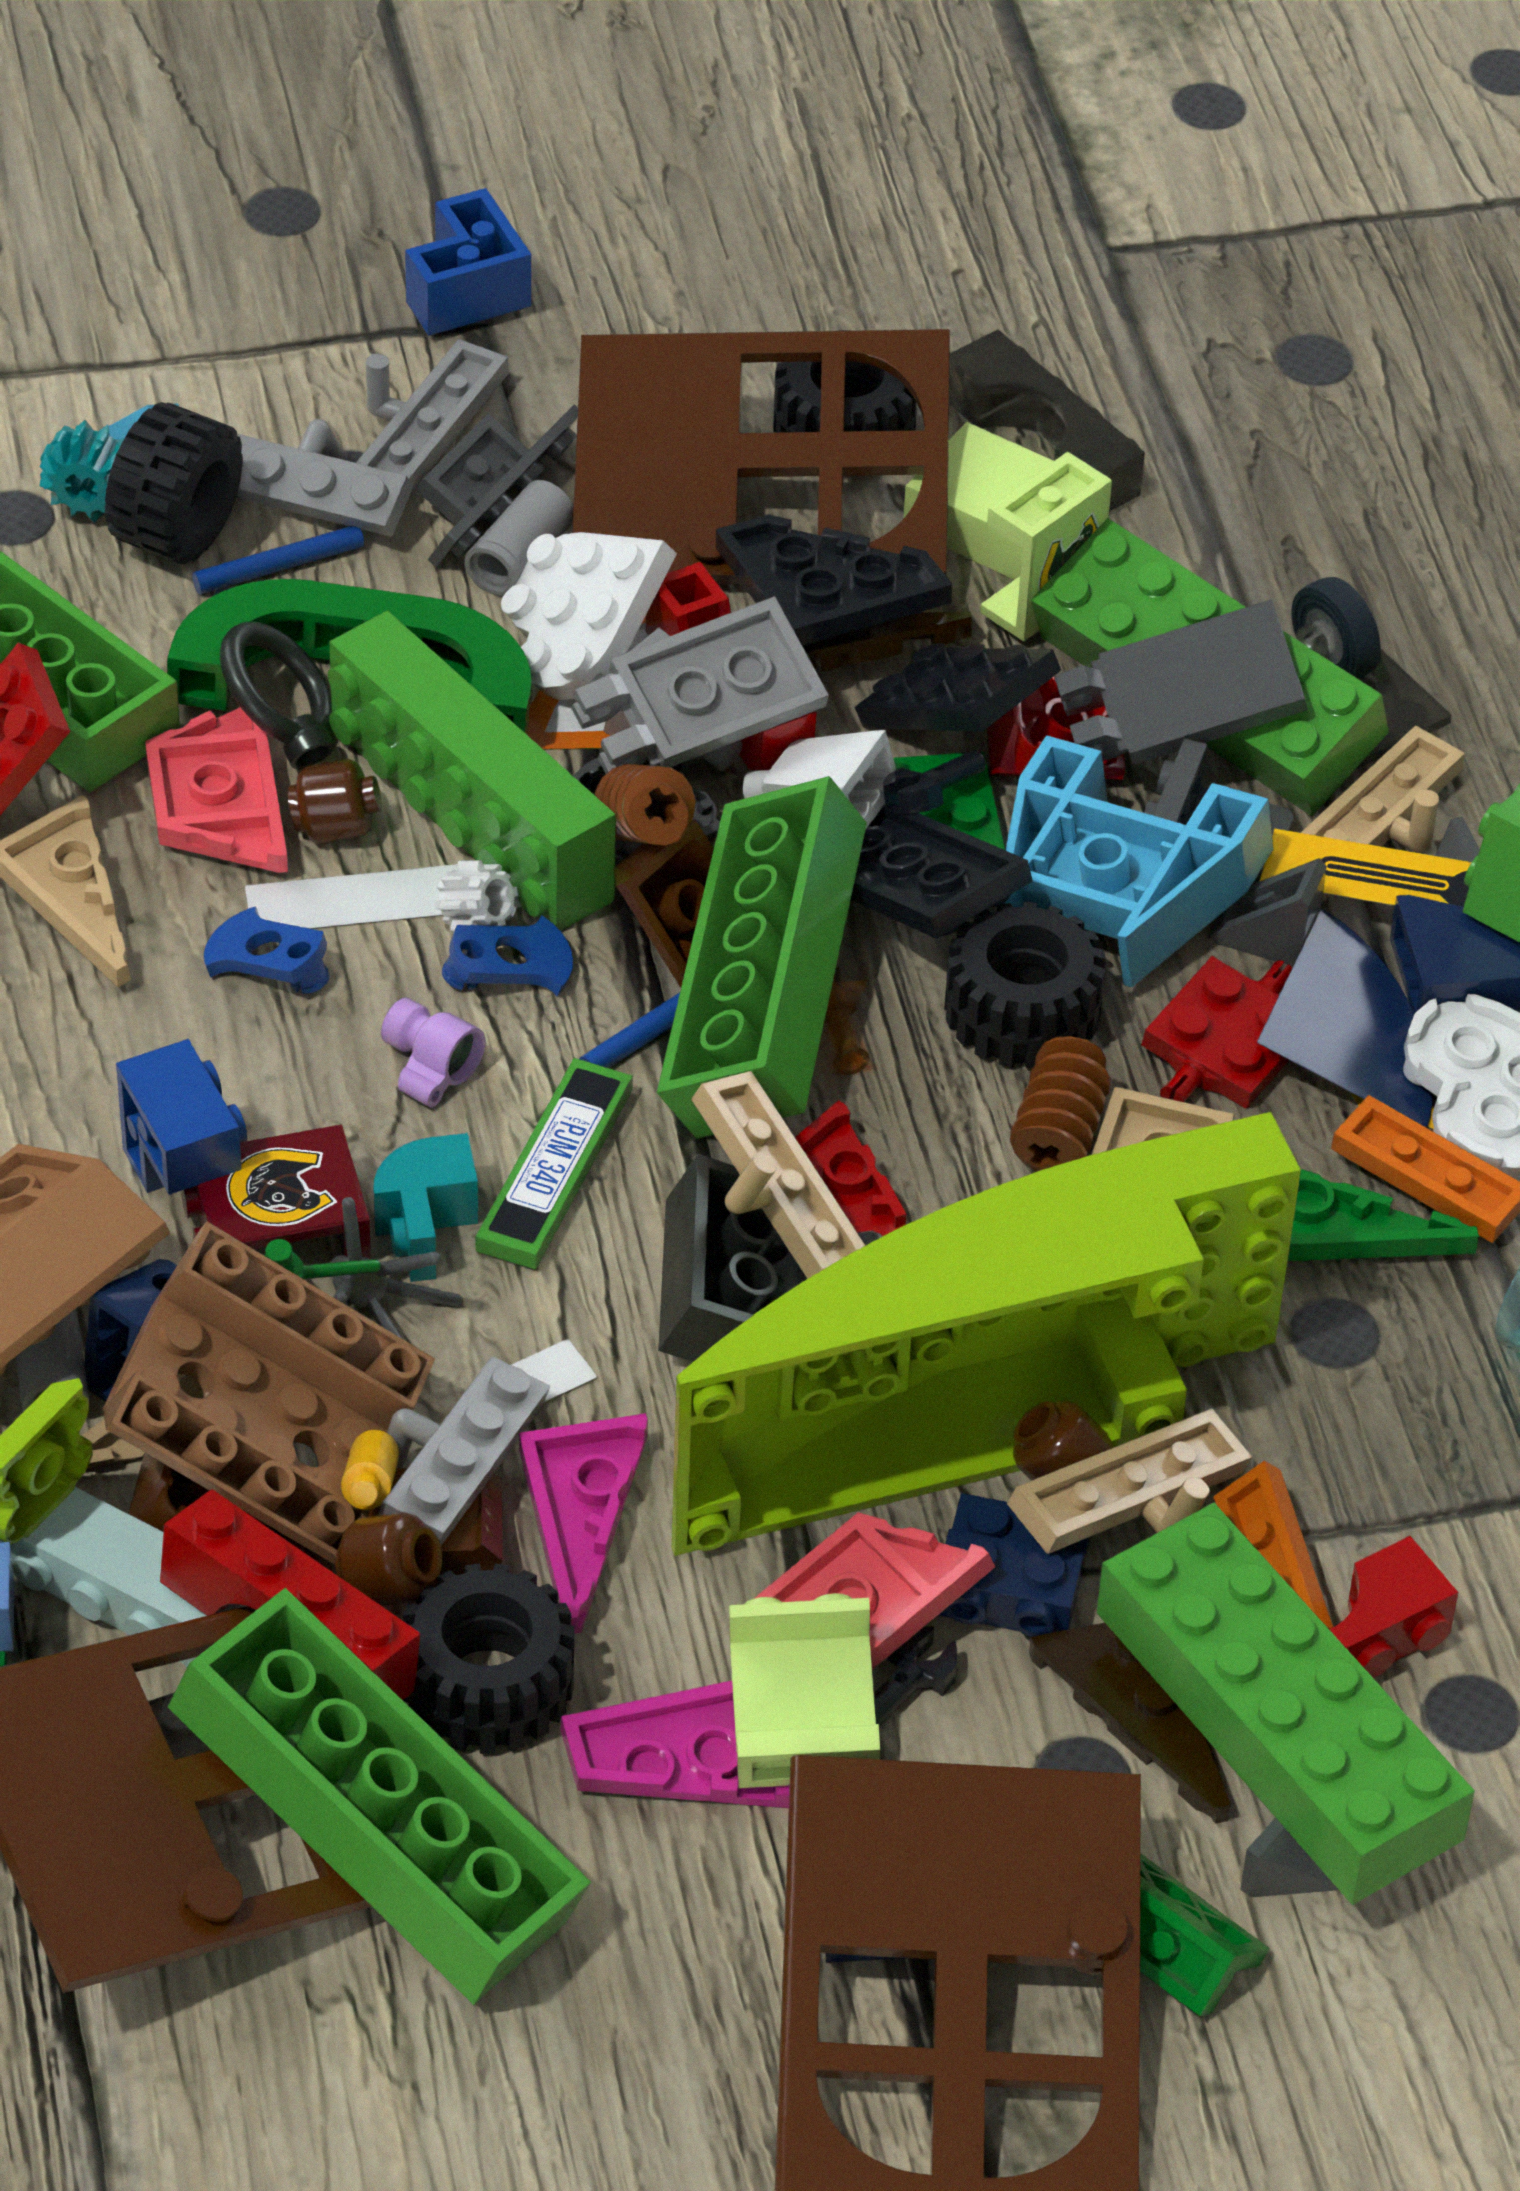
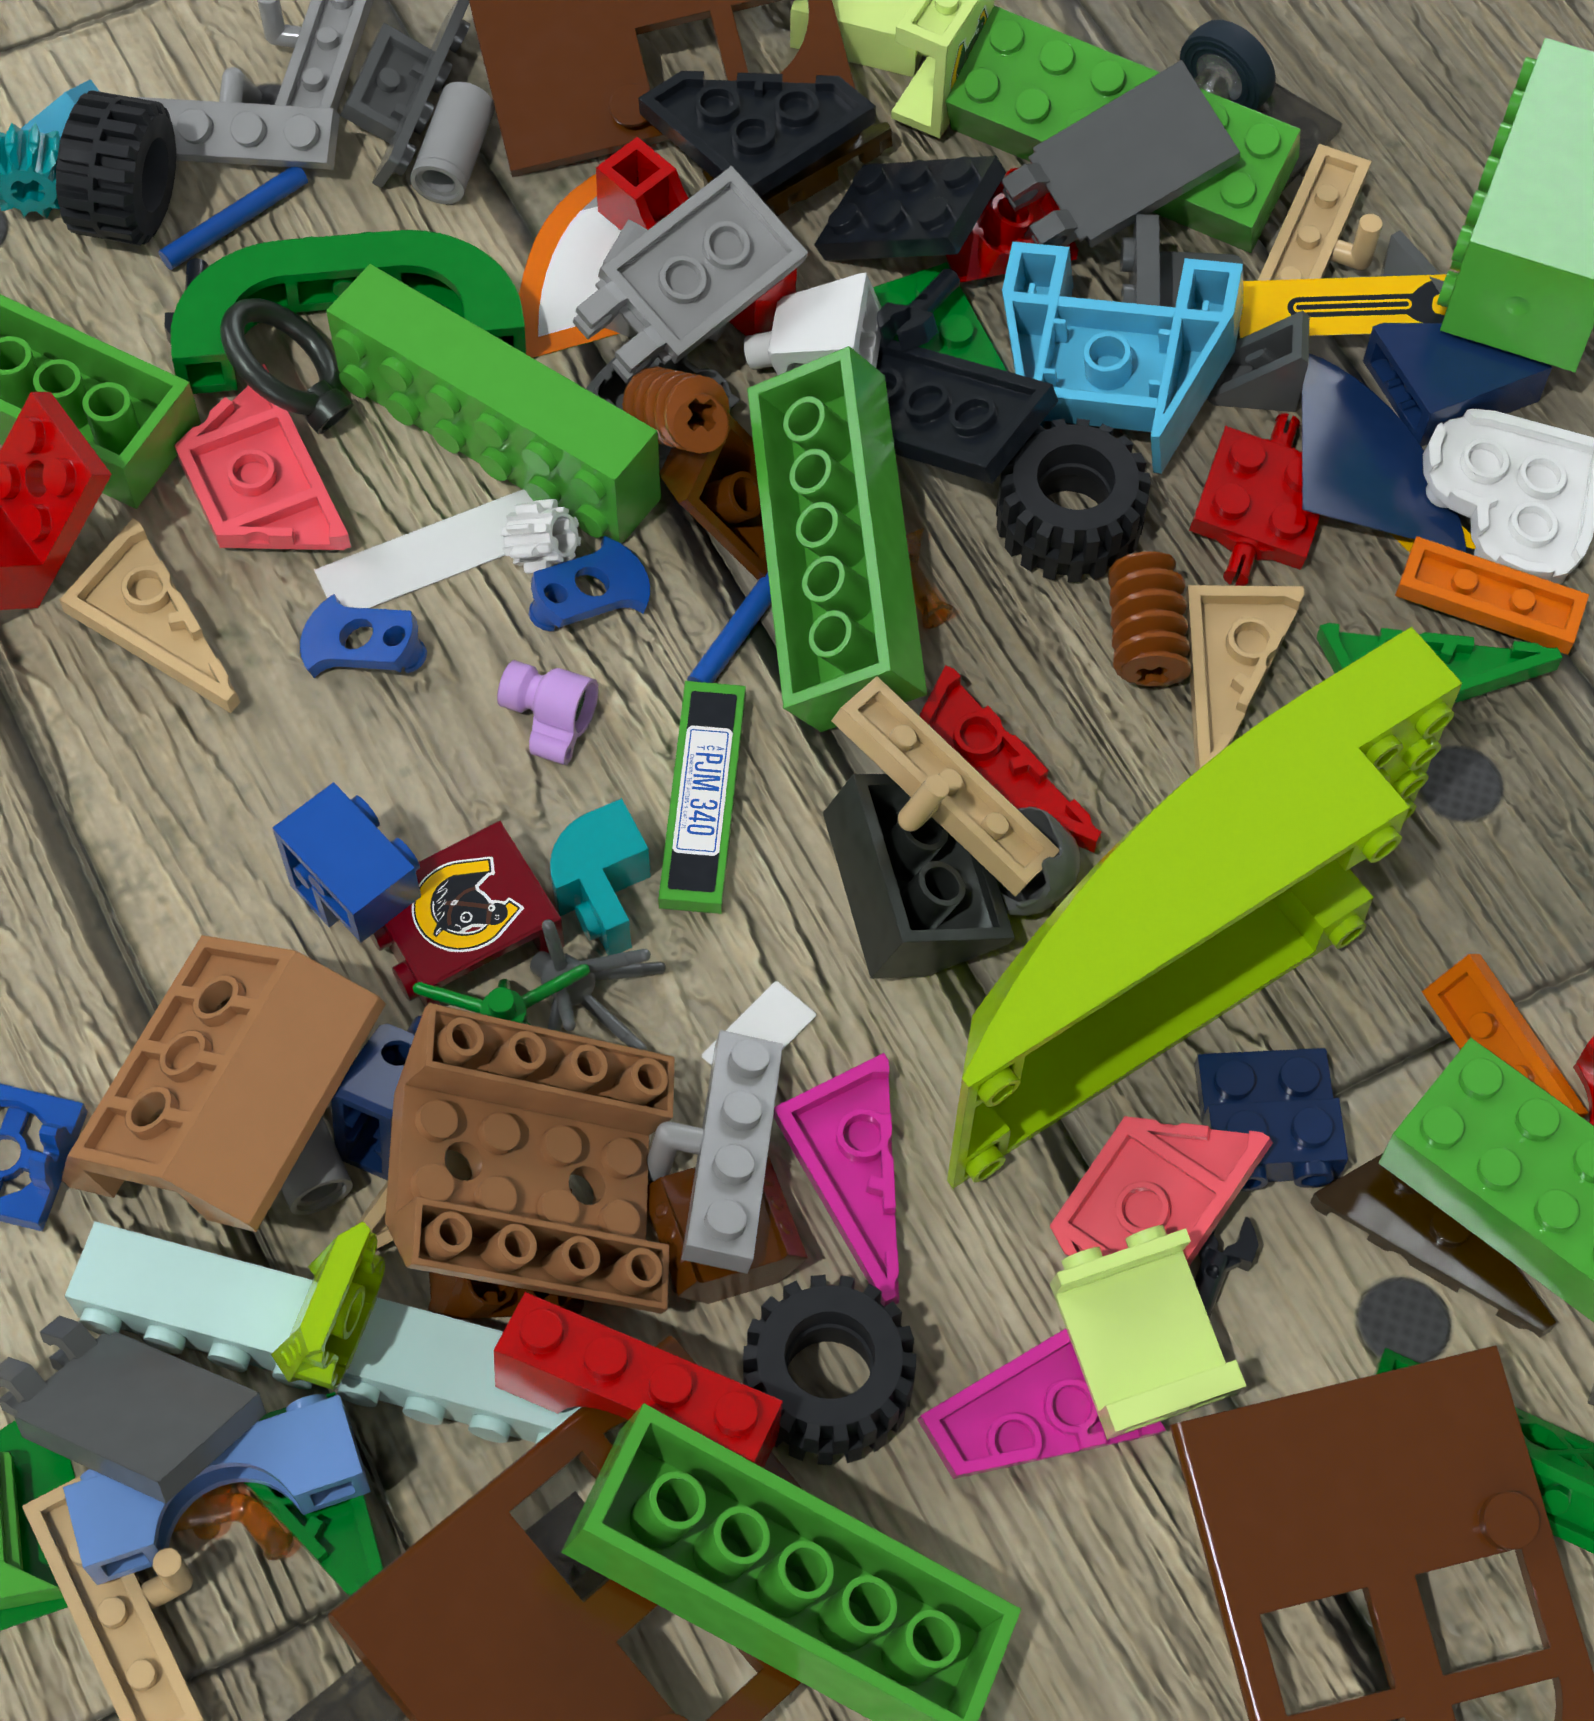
camera: 15 degrees left, 15 degrees up
(334, 801) = (373, 465): reddish brown head -> none
(370, 1469) = (656, 1203): yellow cylinder -> none
(389, 1557) = (710, 1304): reddish brown head -> none
(583, 604) = (540, 203): white plate -> none
(1056, 1437) = (1280, 989): reddish brown head -> none
(1132, 1481) = (1358, 1009): tan plate -> none

